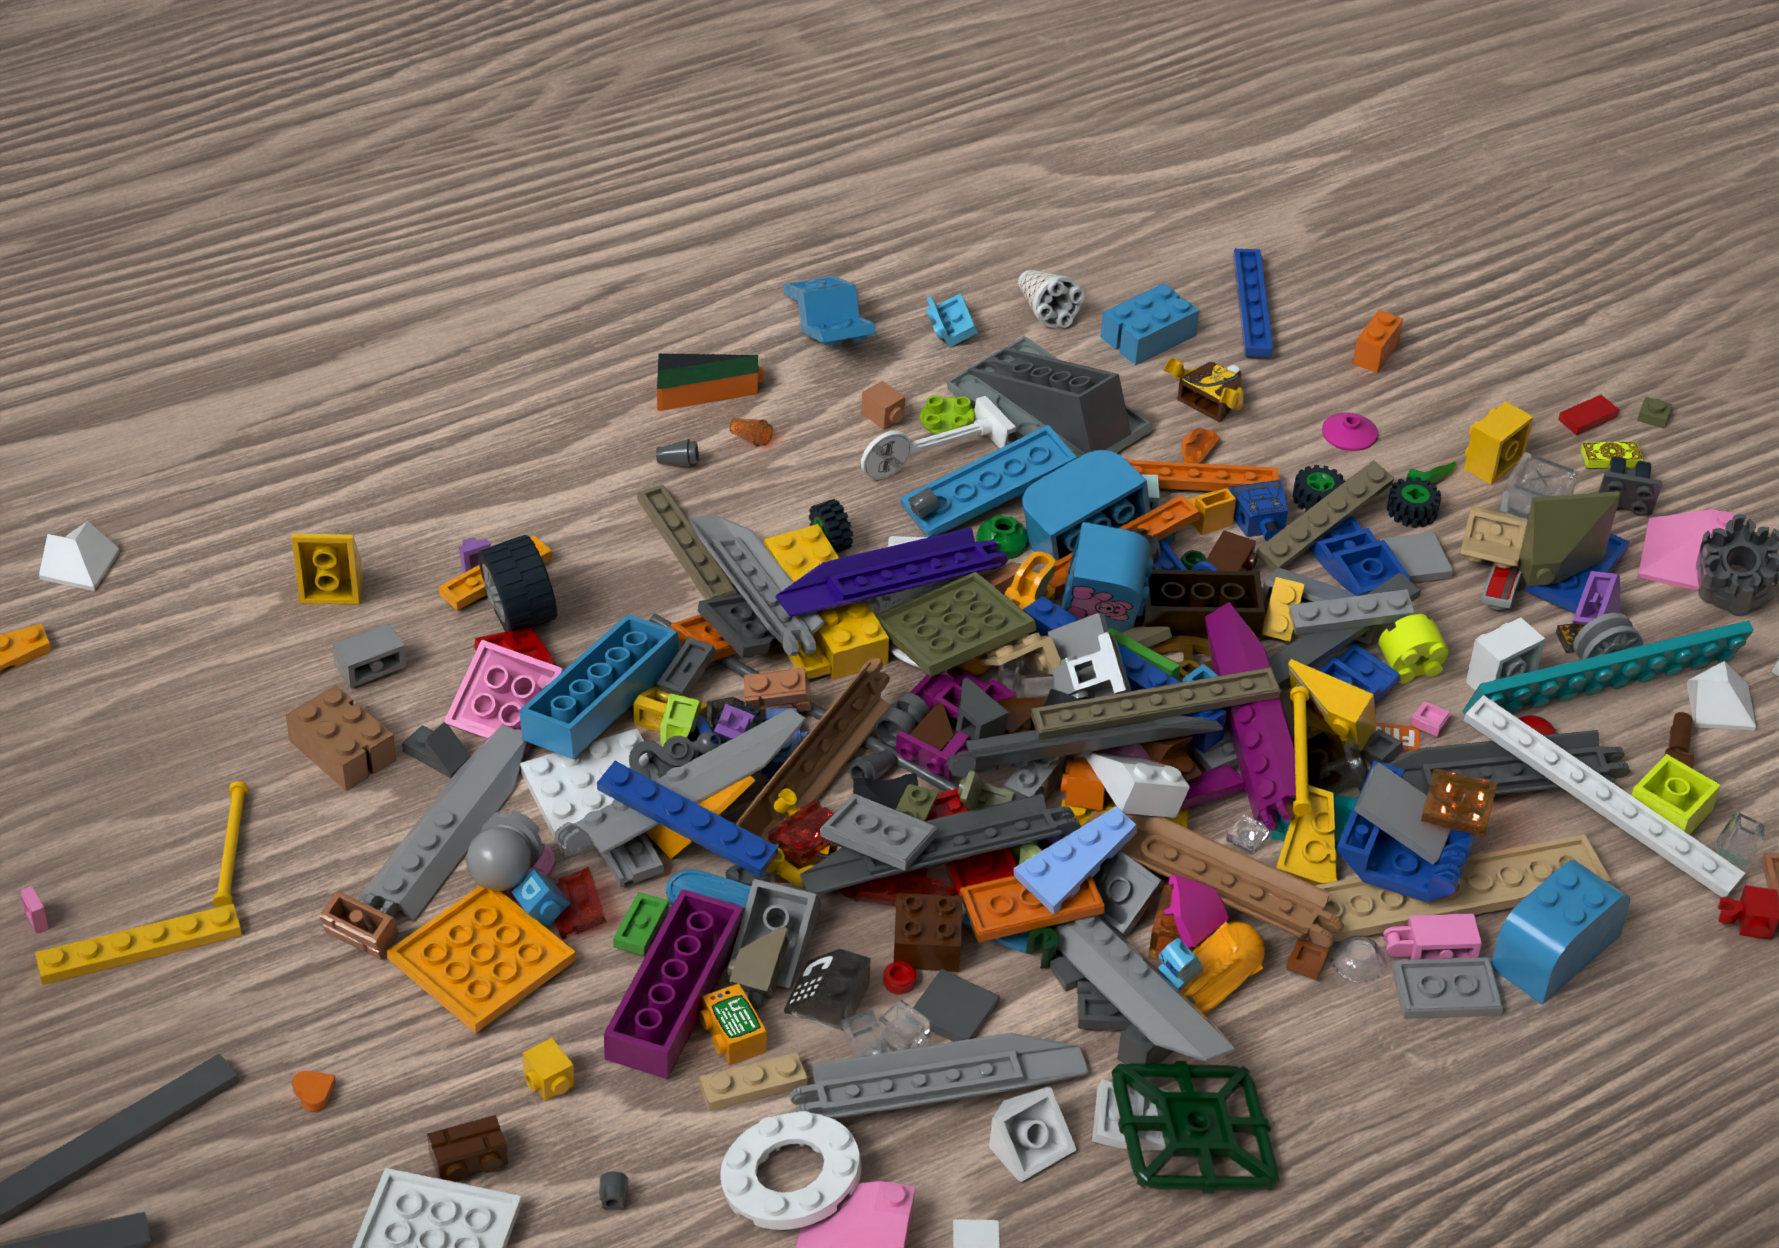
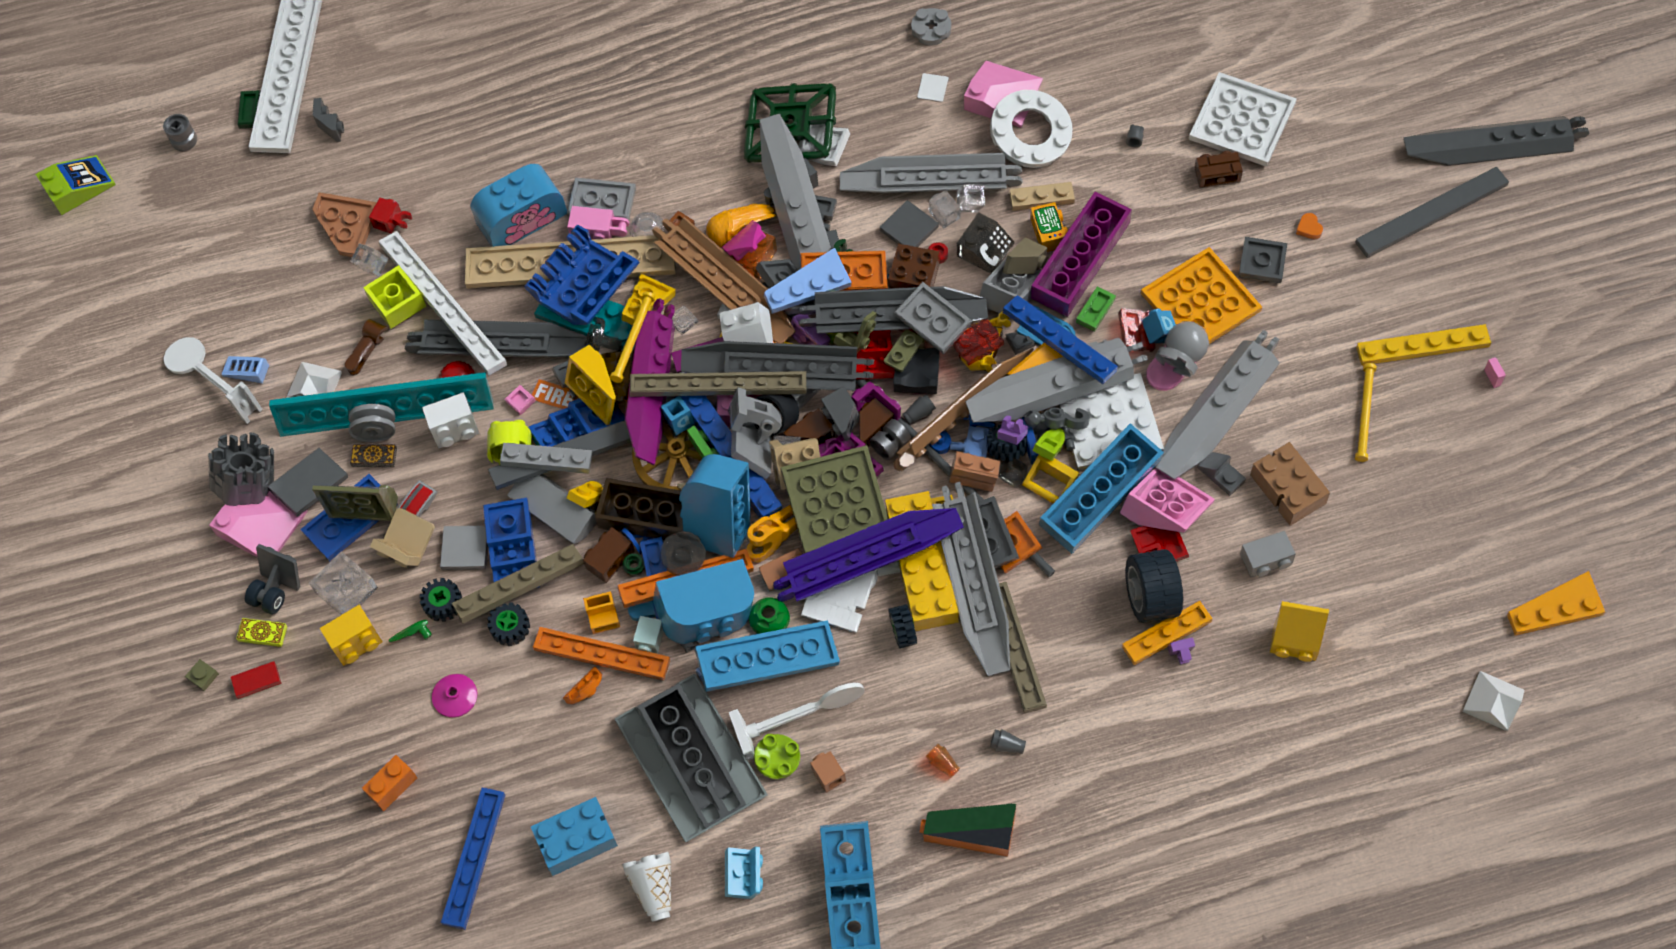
camera: 160 degrees left, 20 degrees up
(359, 924) = (1280, 322): nougat brick -> none
(387, 1024) = (1263, 260): none -> dark grey plate
(548, 1069) = (1166, 212): yellow brick -> none
(687, 667) = (1036, 501): dark grey plate -> none
(924, 503) = (824, 637): dark grey hose -> none
(1030, 1133) = (890, 132): white slope -> none
(1179, 964) = (767, 200): medium azure leg -> none
(1208, 388) = (550, 745): torso -> none
(1260, 508) = (562, 606): torso -> none
(1398, 811) = (584, 278): light grey tile -> none
(1459, 802) = (548, 271): clear orange plate -> none
(1599, 597) = (359, 464): medium lavender slope -> none
(1656, 592) = (296, 485): none -> dark grey tile

